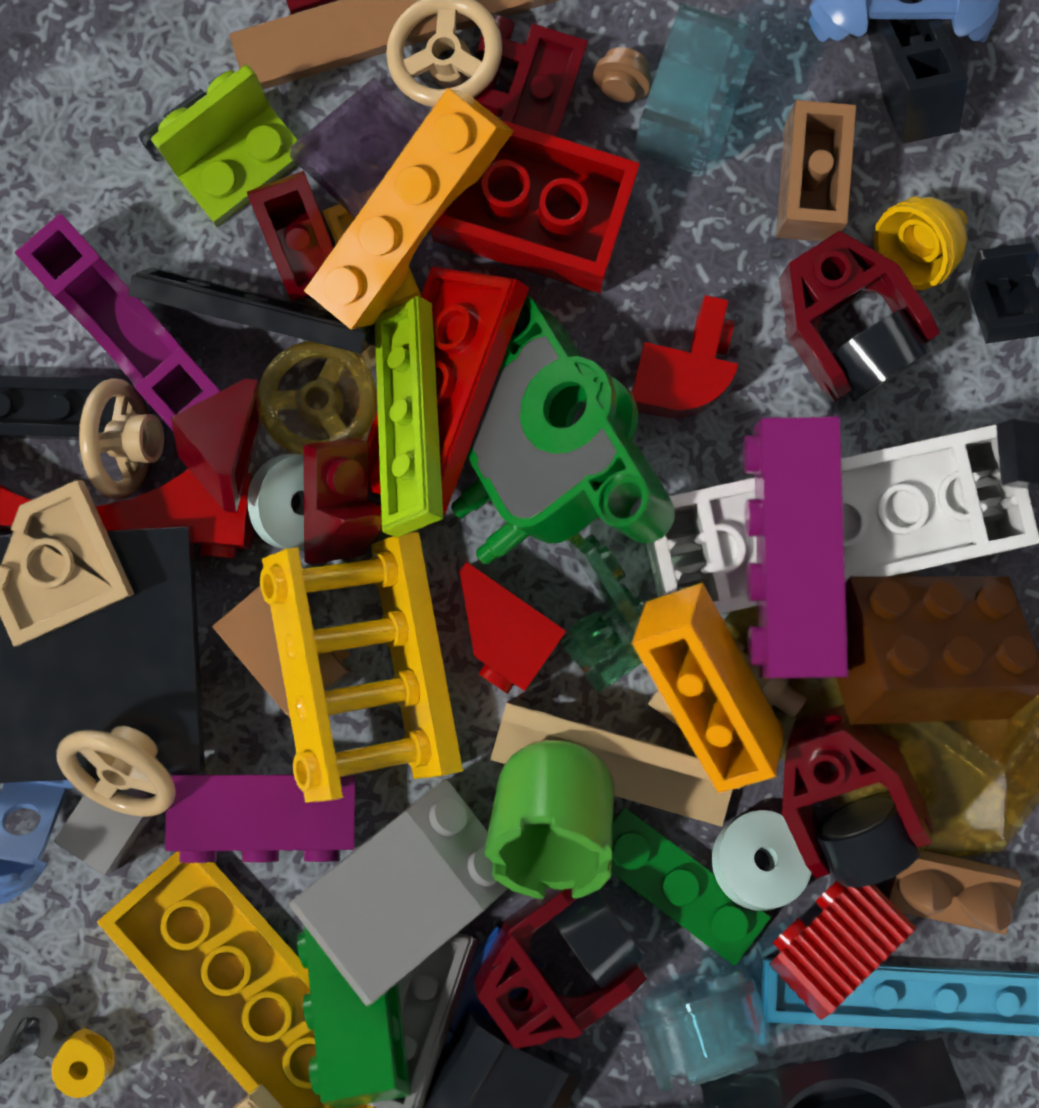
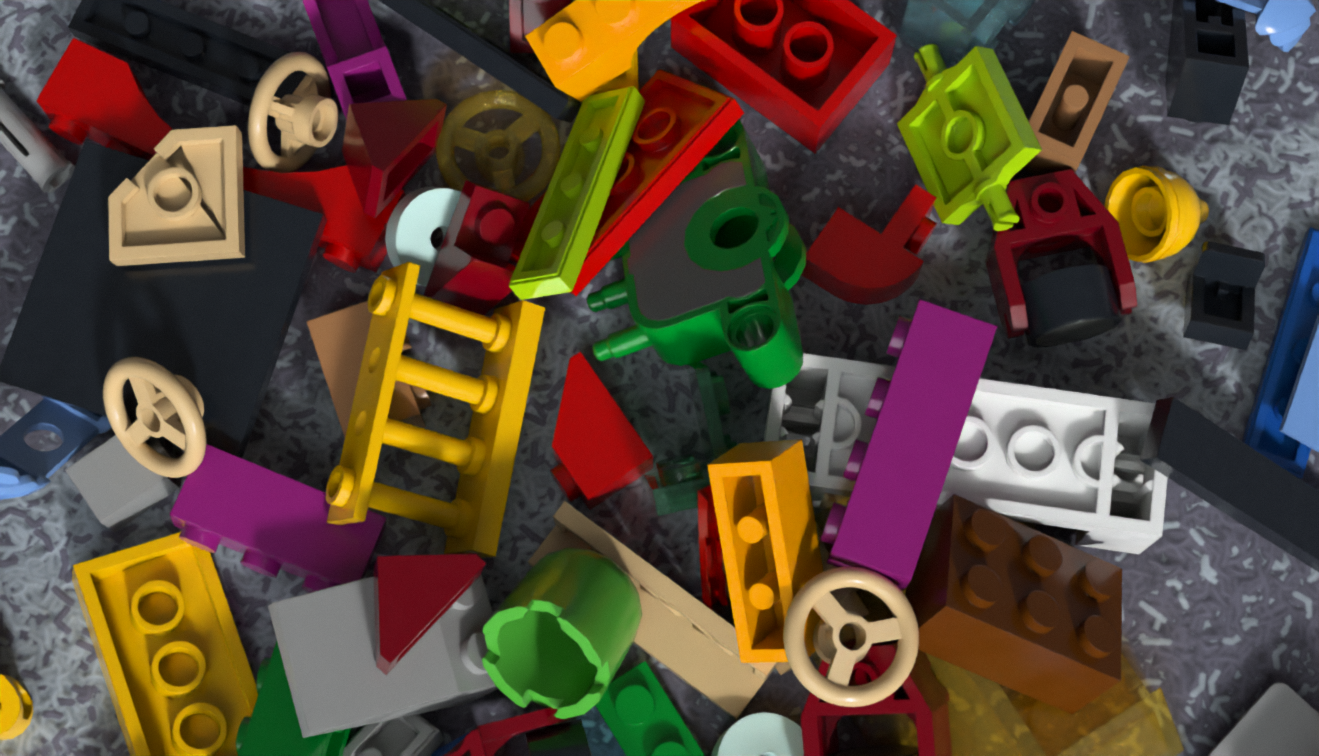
camera: 20 degrees right, 10 degrees down
(415, 853) = (413, 596): none -> dark red slope
(650, 699) = (710, 551): none -> red piece
(736, 232) = (968, 136): none -> lime plate
(787, 743) = (826, 641): none -> tan piece

